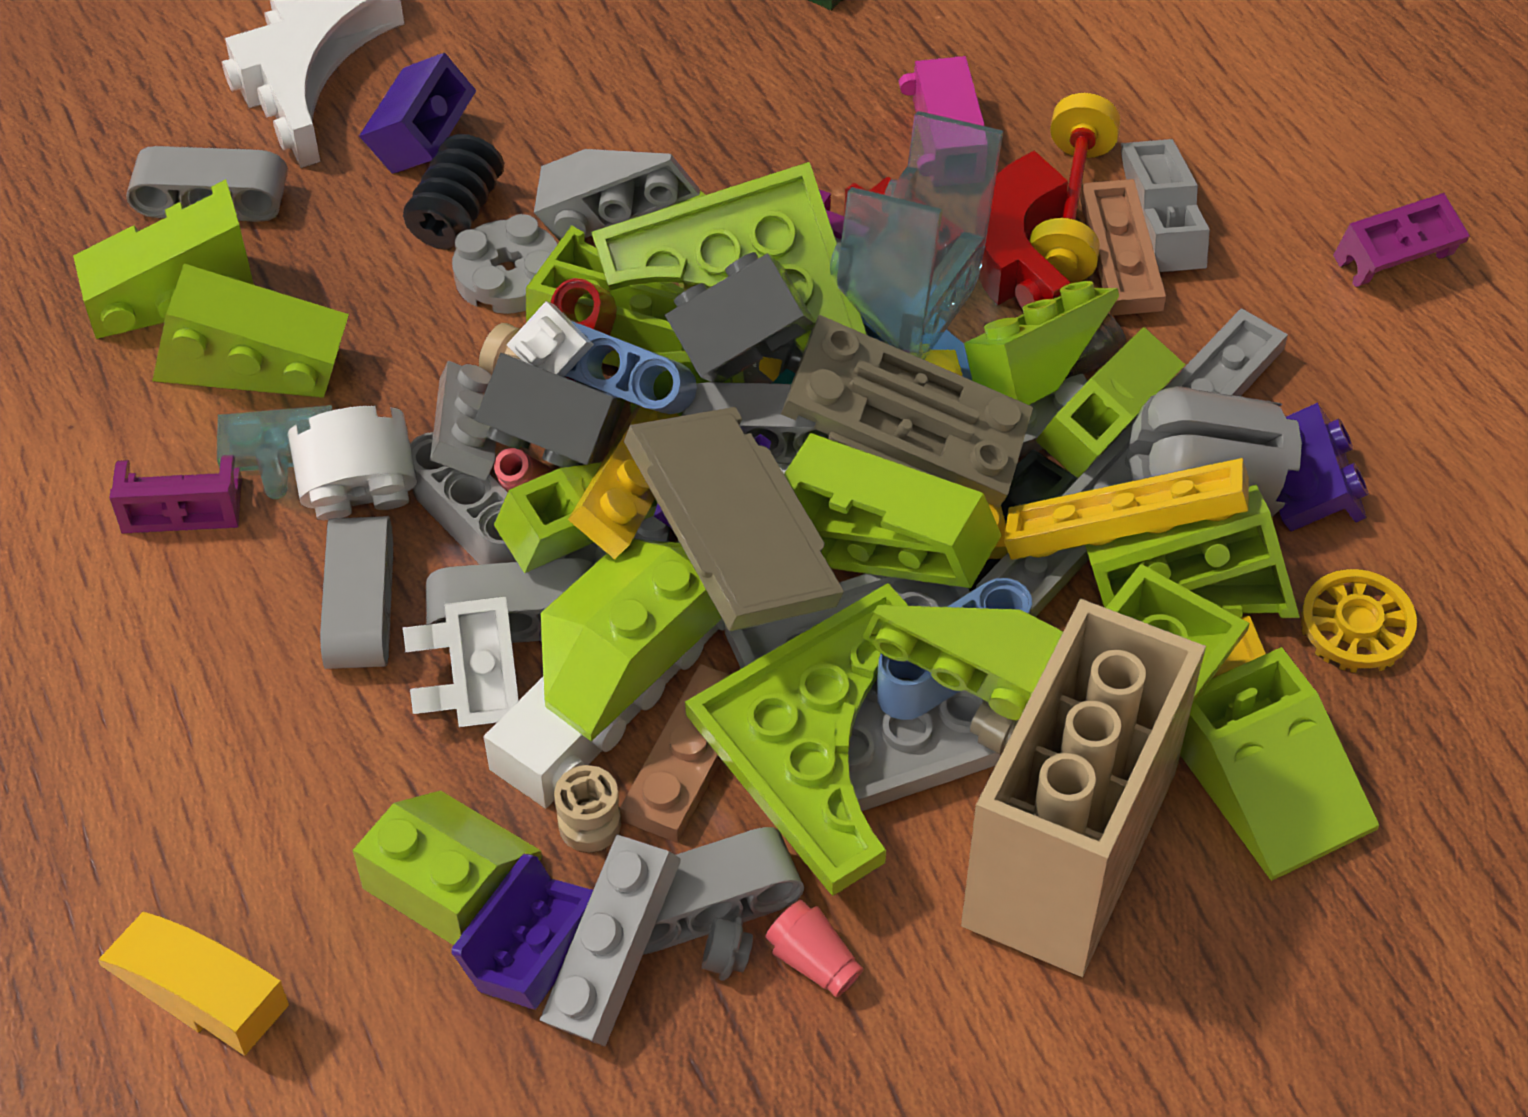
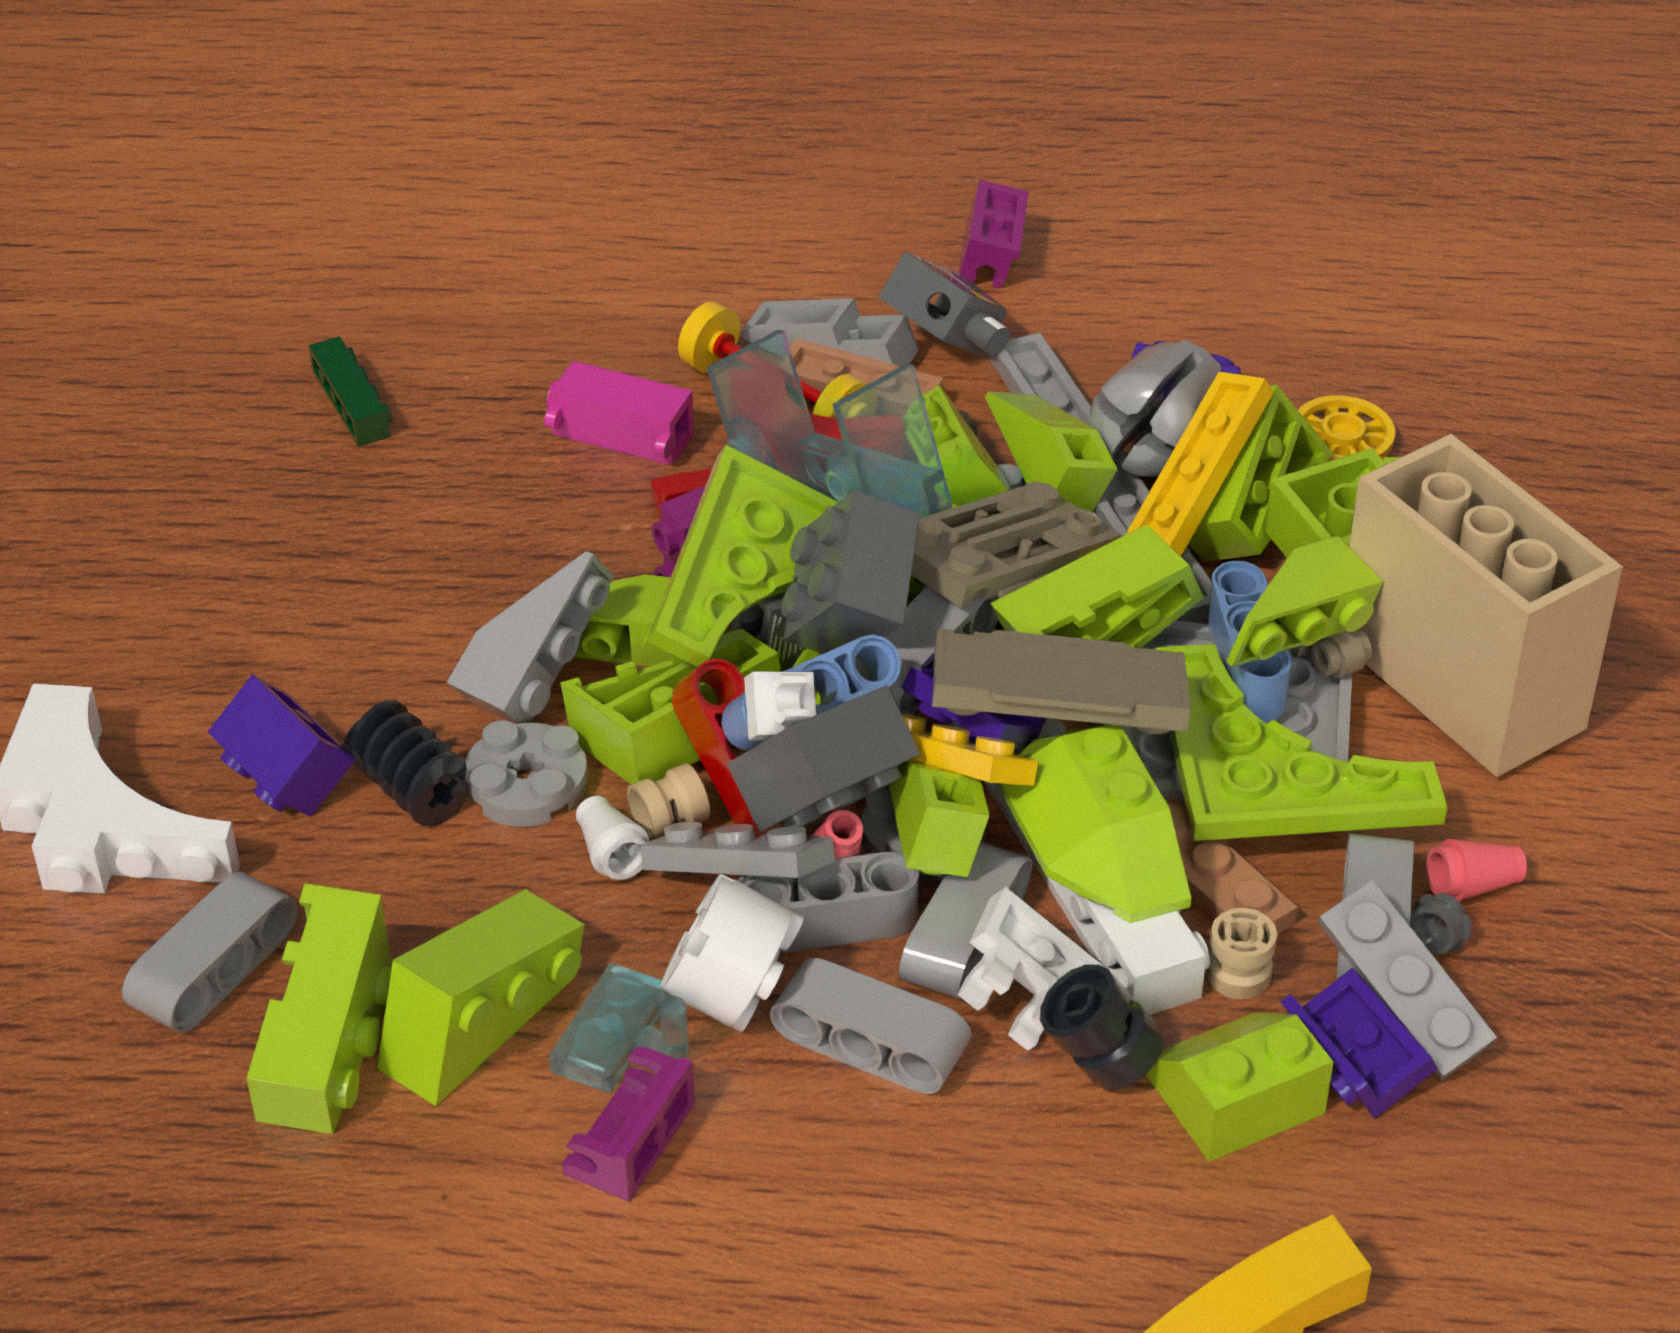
camera: 60 degrees left, 10 degrees down
(417, 737) = (1101, 1027): none -> black wheel
(459, 341) = (611, 838): none -> white cone
(1248, 249) = (960, 315): none -> dark grey torso

